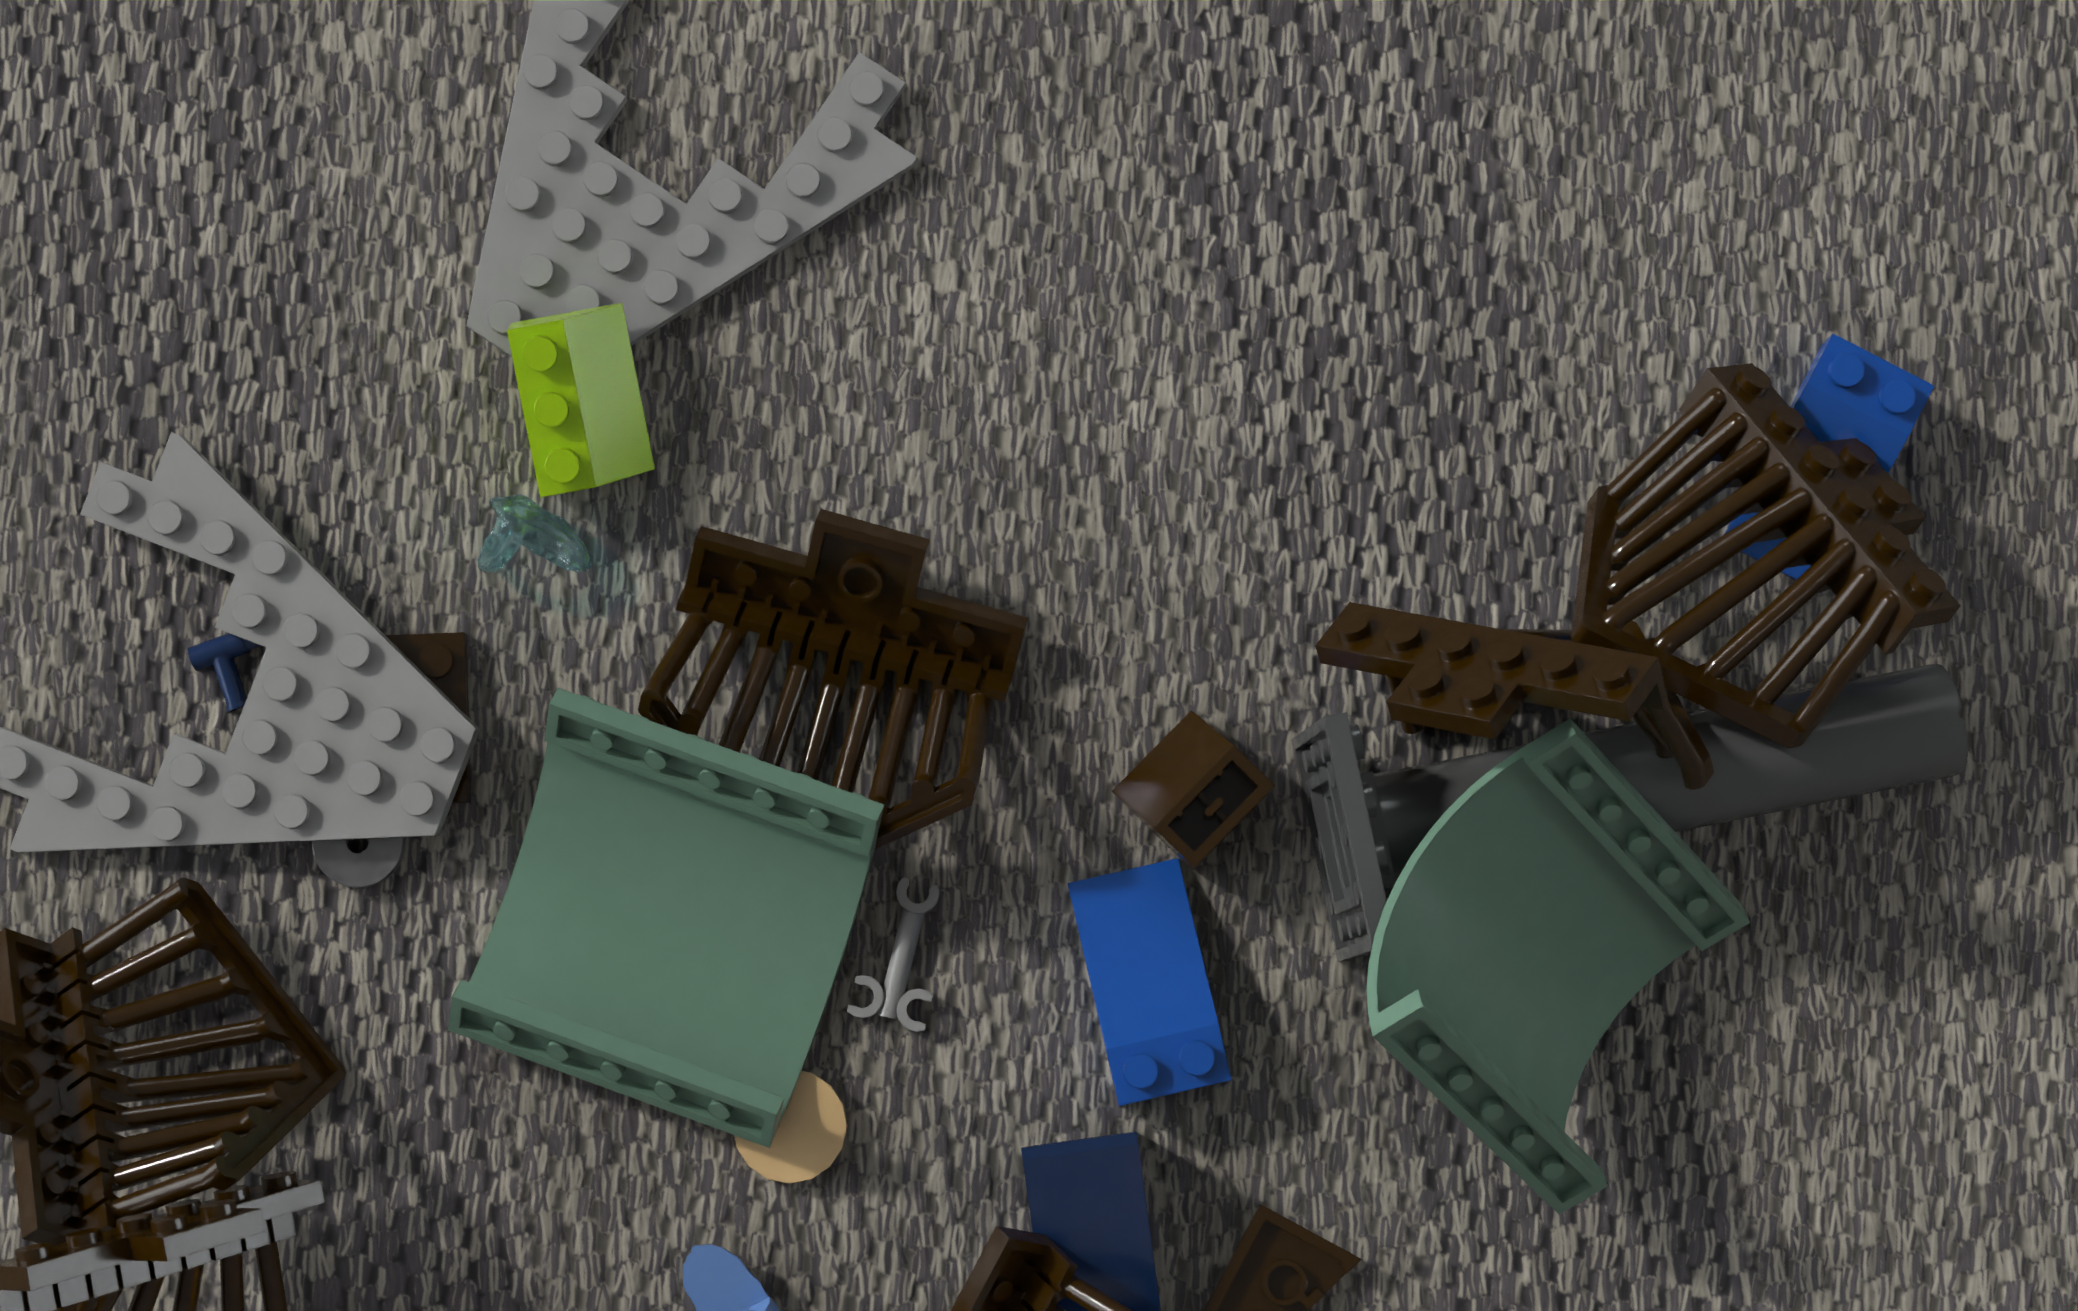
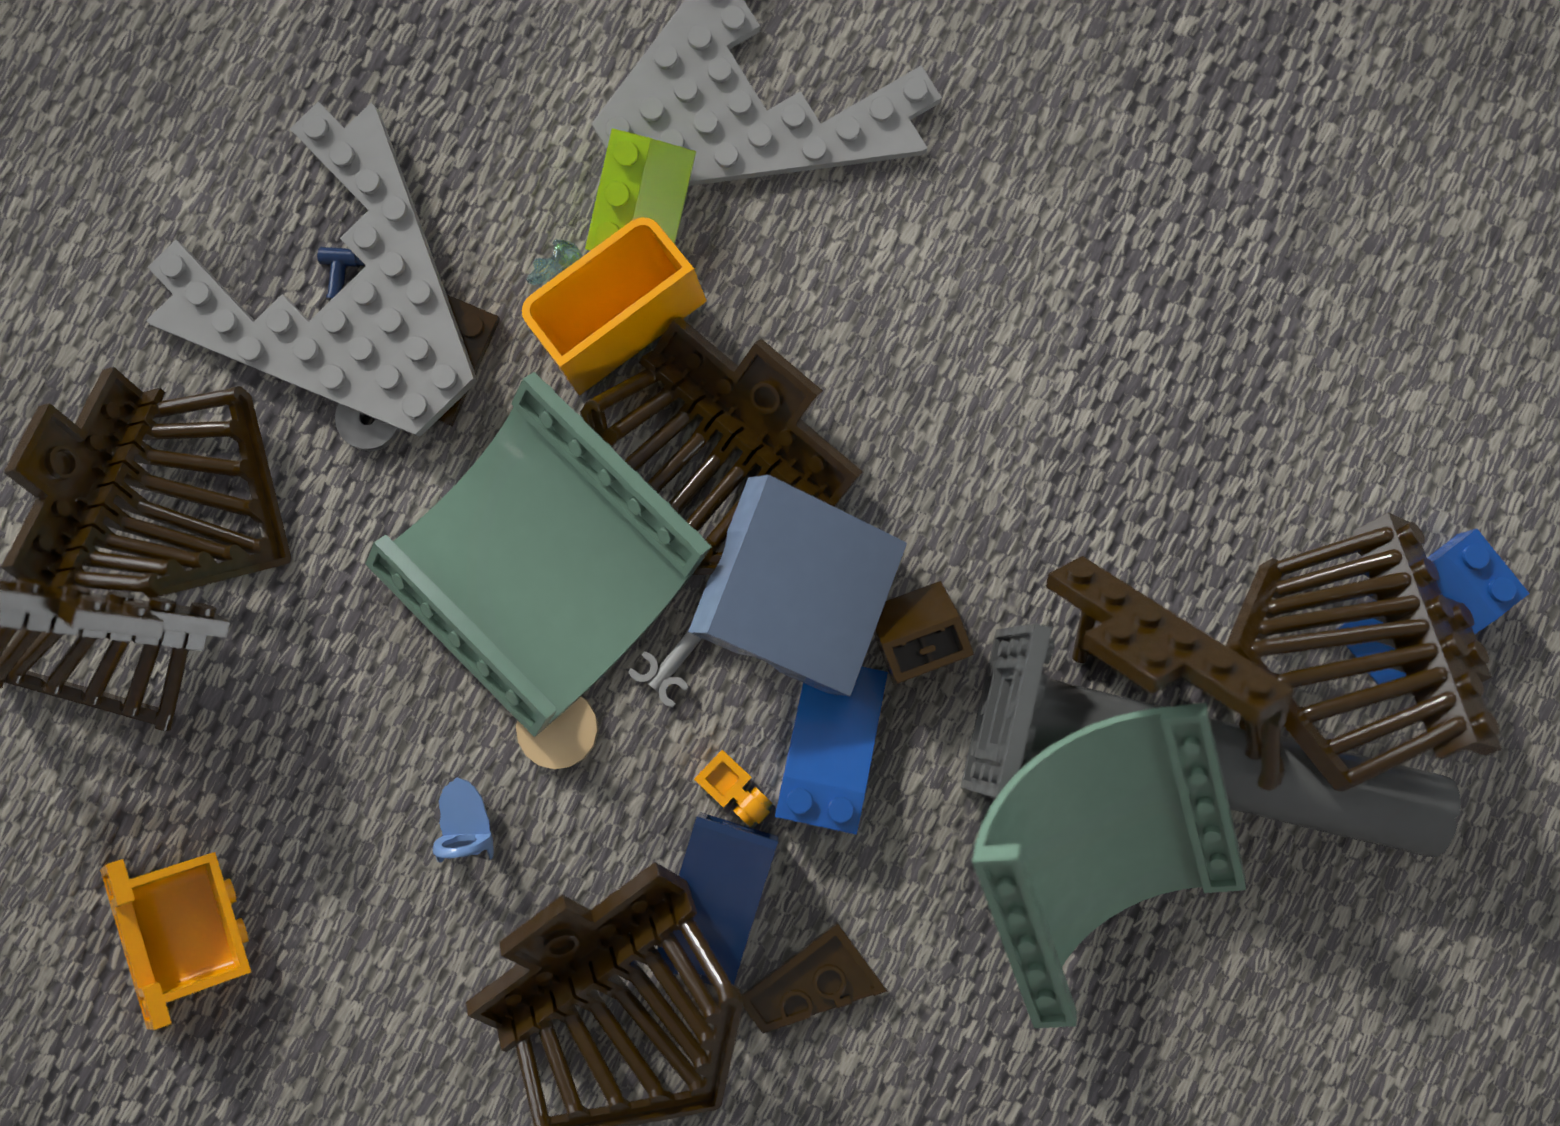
camera: 20 degrees right, 0 degrees up
(609, 550) = (613, 302): none -> light orange windscreen
(1015, 802) = (798, 585): none -> sand blue tile
(1035, 1092) = (725, 781): none -> light orange plate

